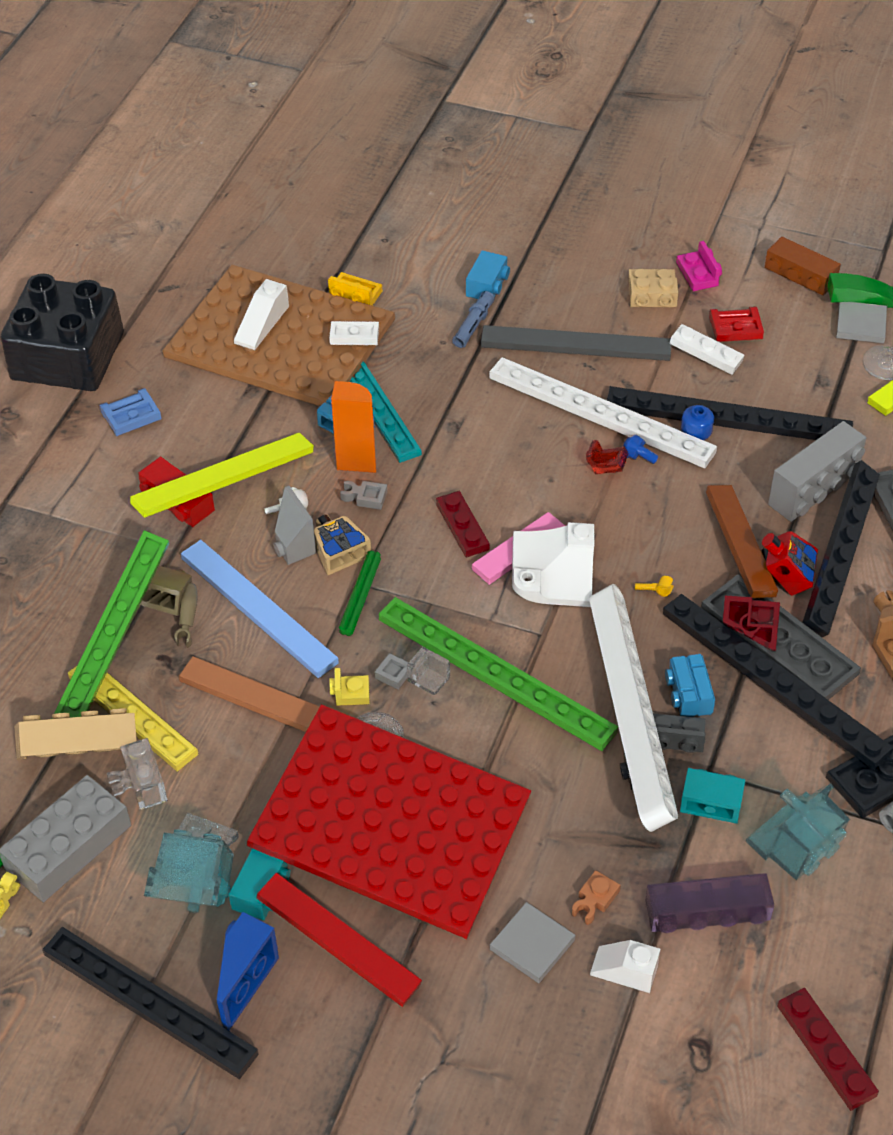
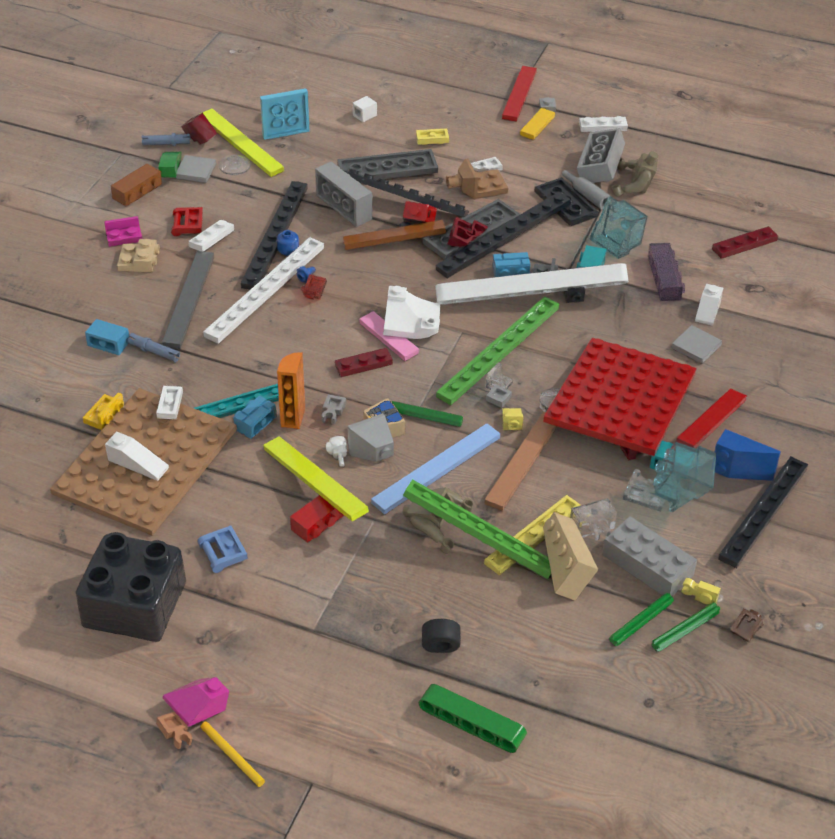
camera: 90 degrees left, 5 degrees down
(596, 893) = (662, 317): nougat plate -> none
(663, 588) = (427, 273): yellow hand -> none

